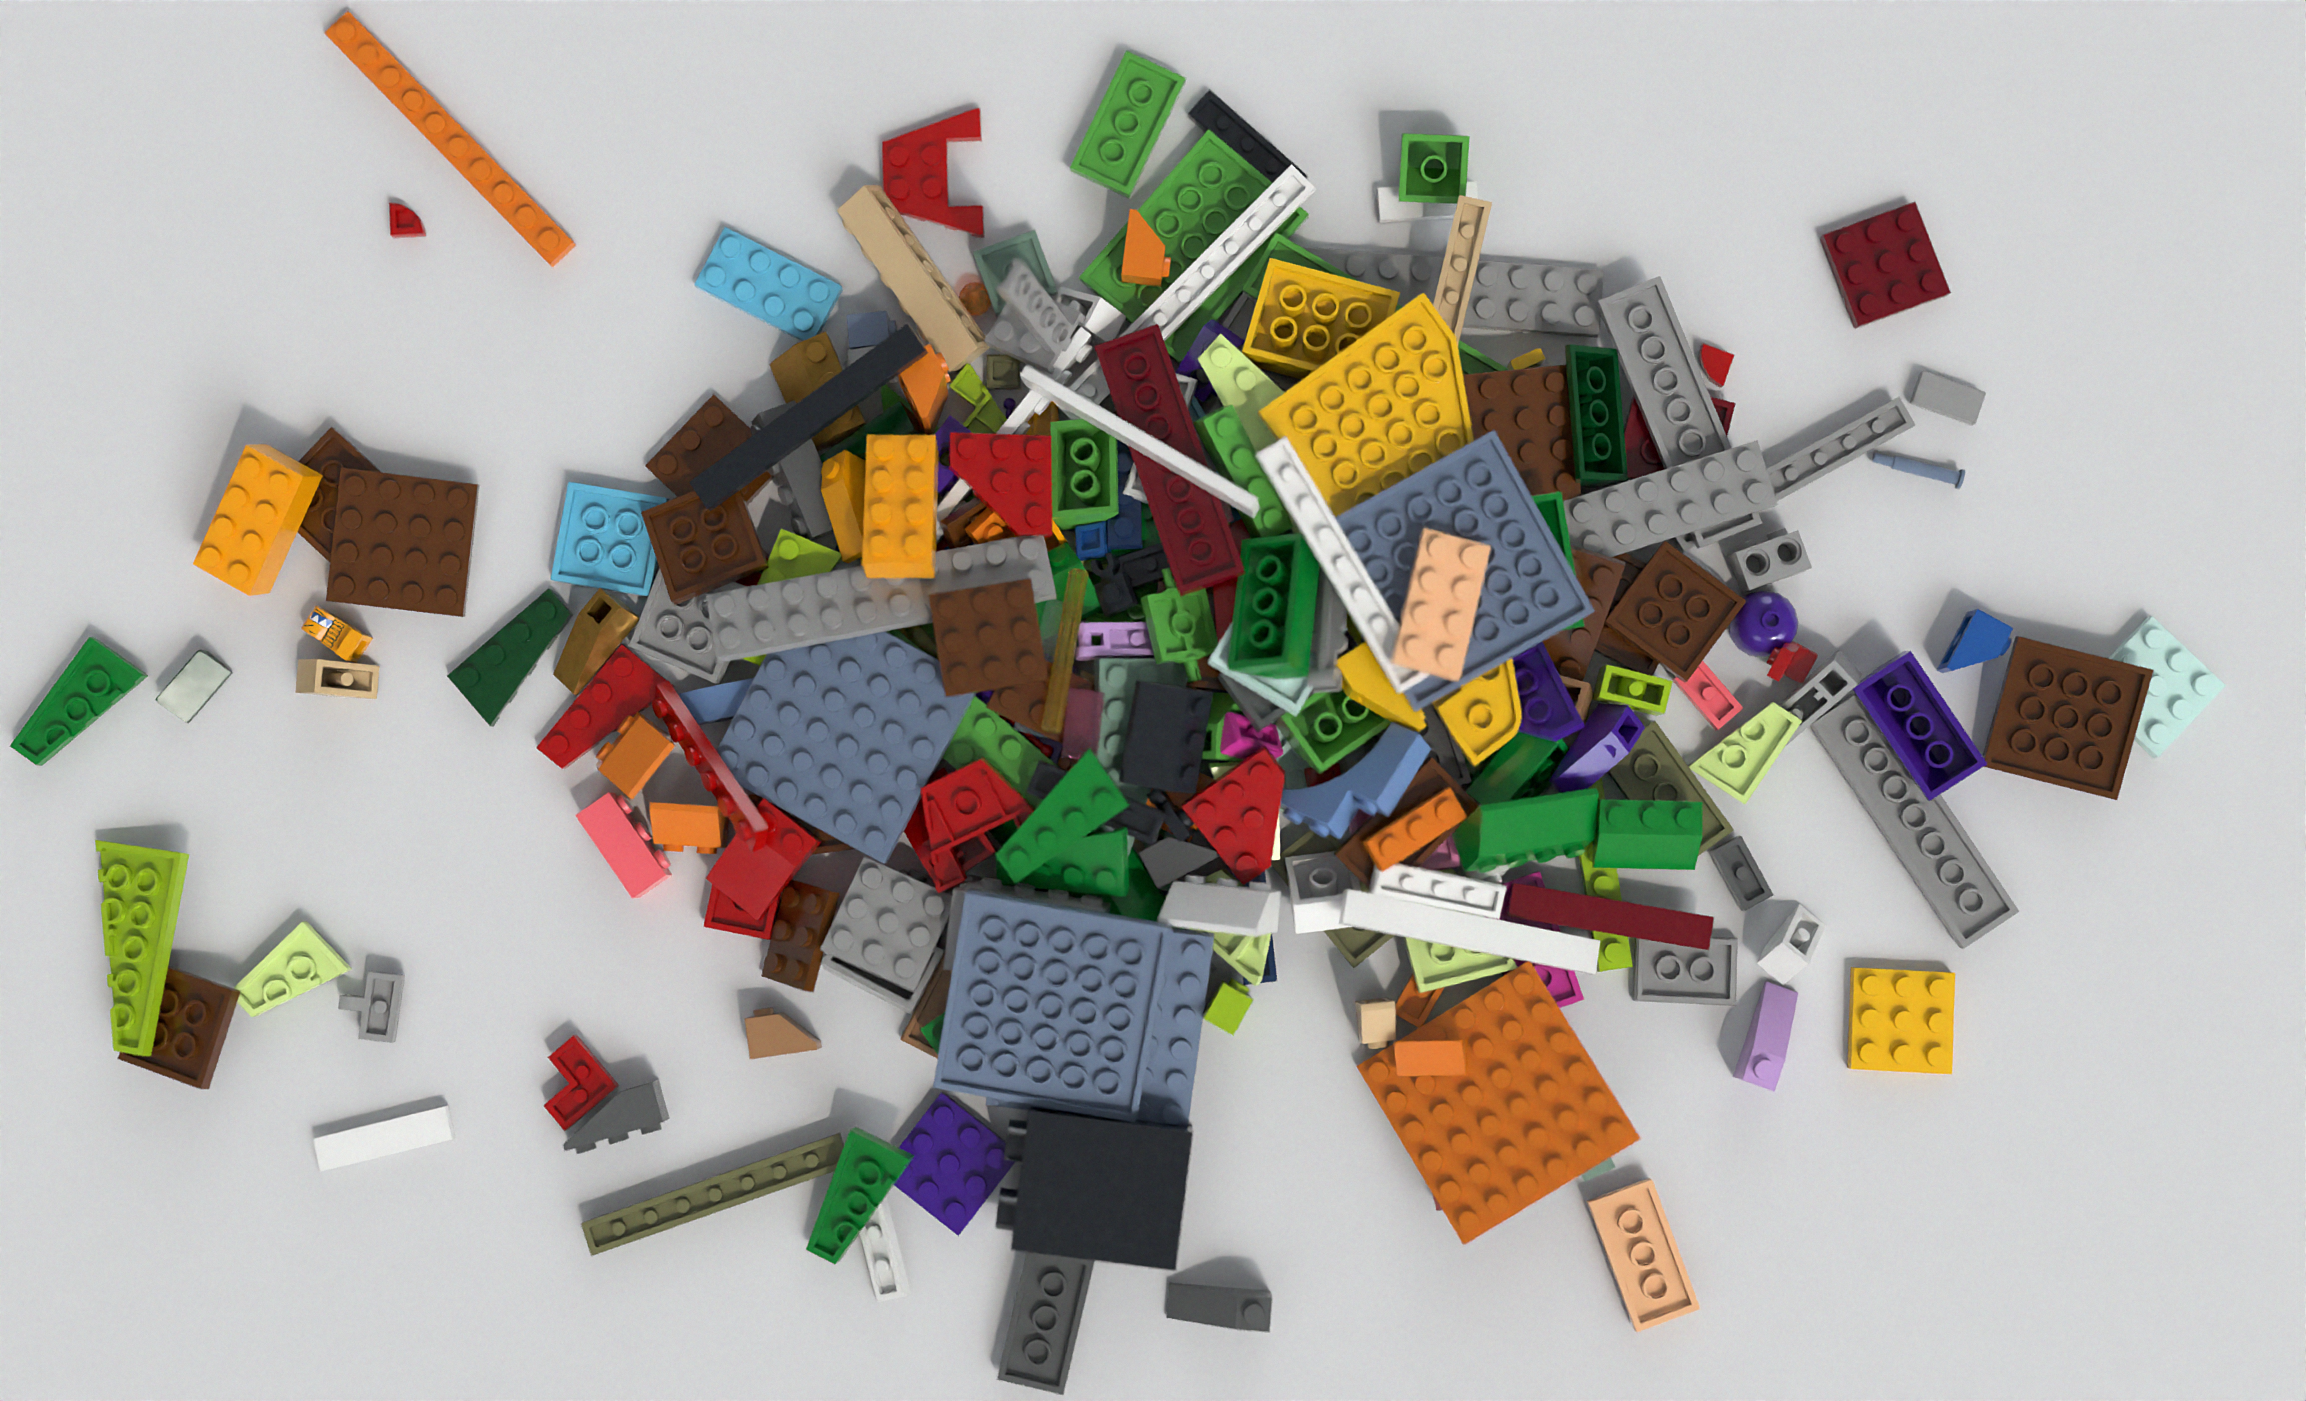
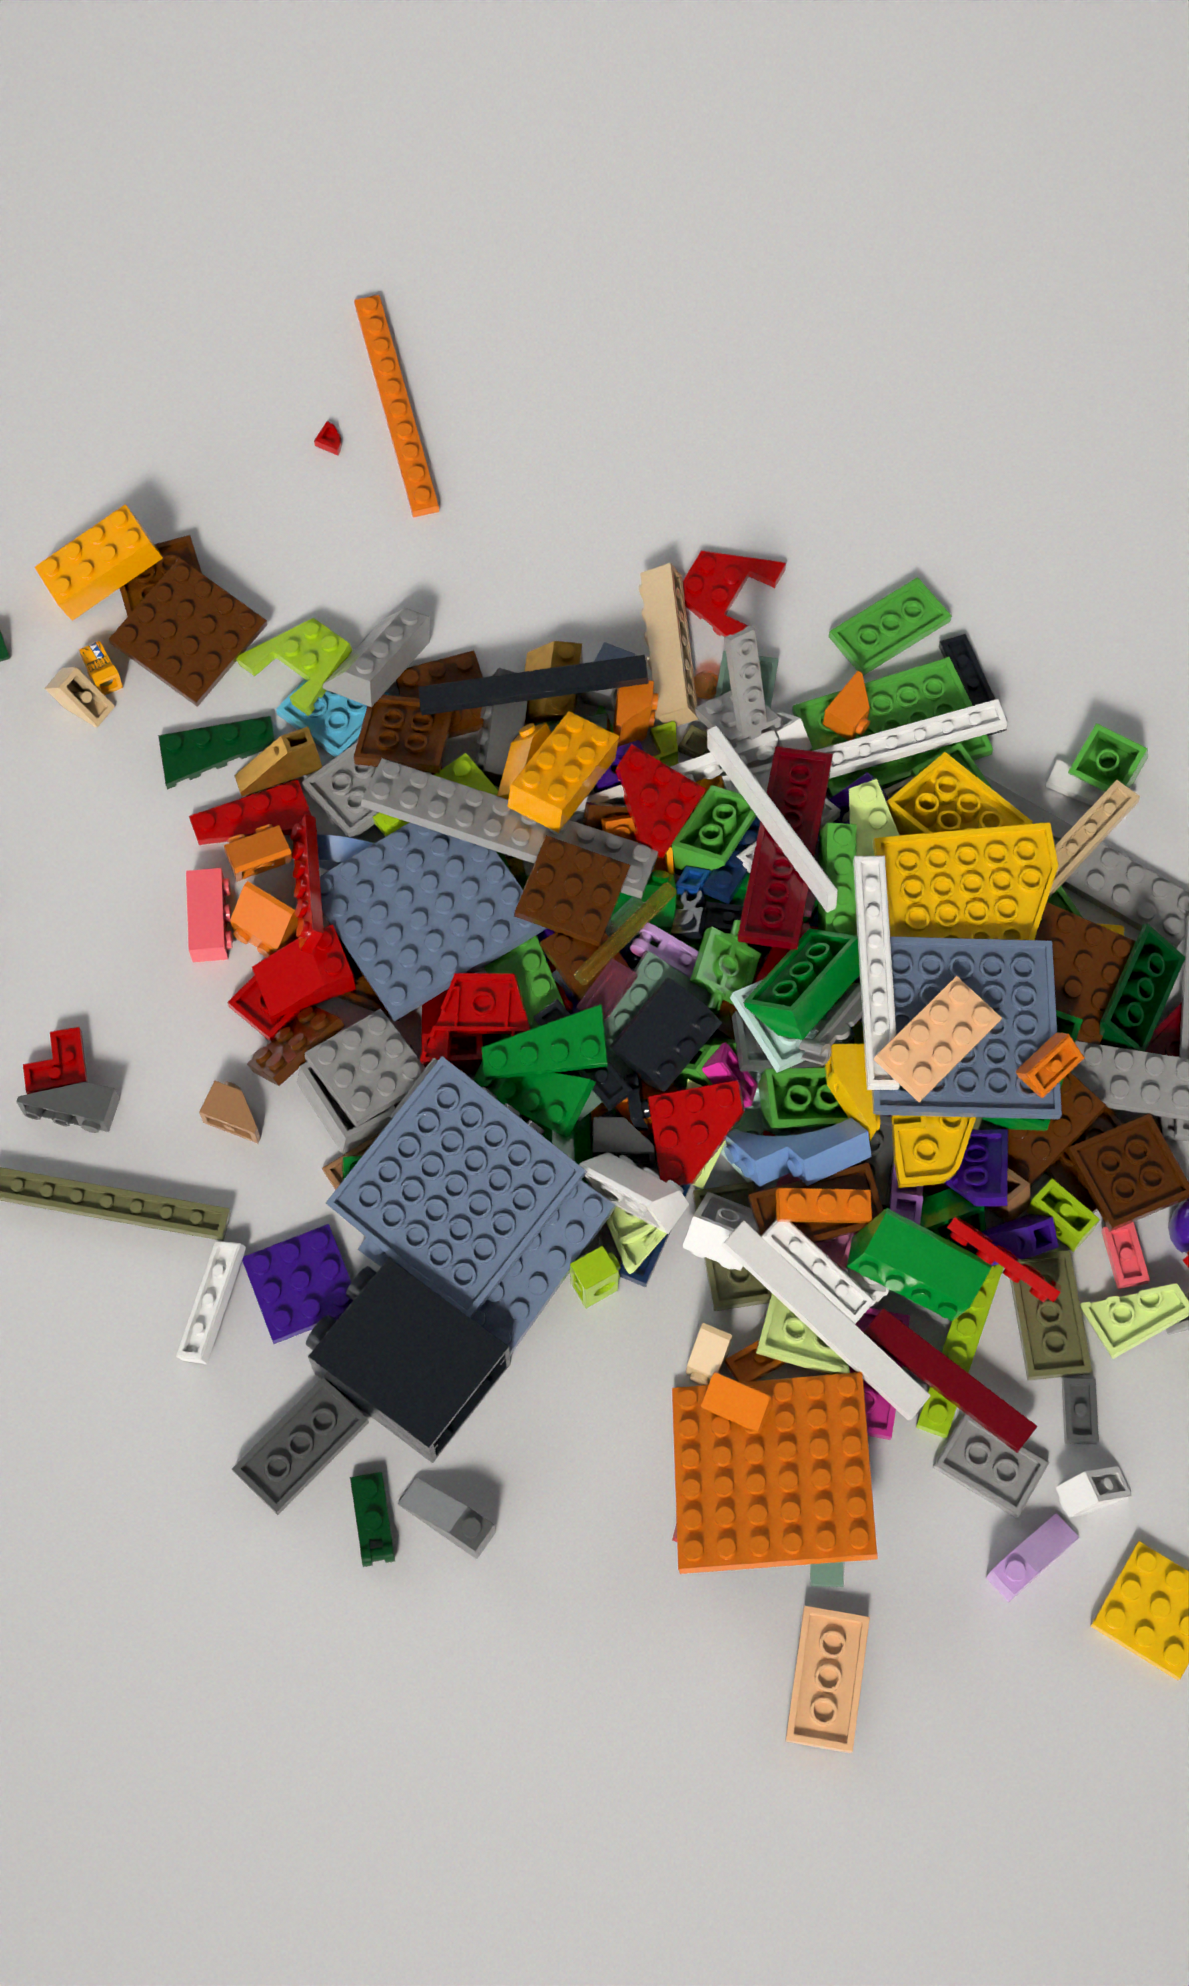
camera: 30 degrees right, 20 degrees down
(545, 494) = (309, 651): none -> lime wing
(624, 464) = (381, 657): none -> light grey slope
(768, 286) = (559, 601): medium azure plate -> none
(858, 1187) = (219, 1252): green wing -> none
(1152, 1345) = (372, 1518): none -> dark green plate
(1485, 778) = (906, 1200): none -> medium lavender slope
(1558, 565) = (1050, 1064): none -> orange slope
(1647, 834) = (1015, 1328): green slope -> none
(1652, 784) = (1014, 1270): none -> red wing

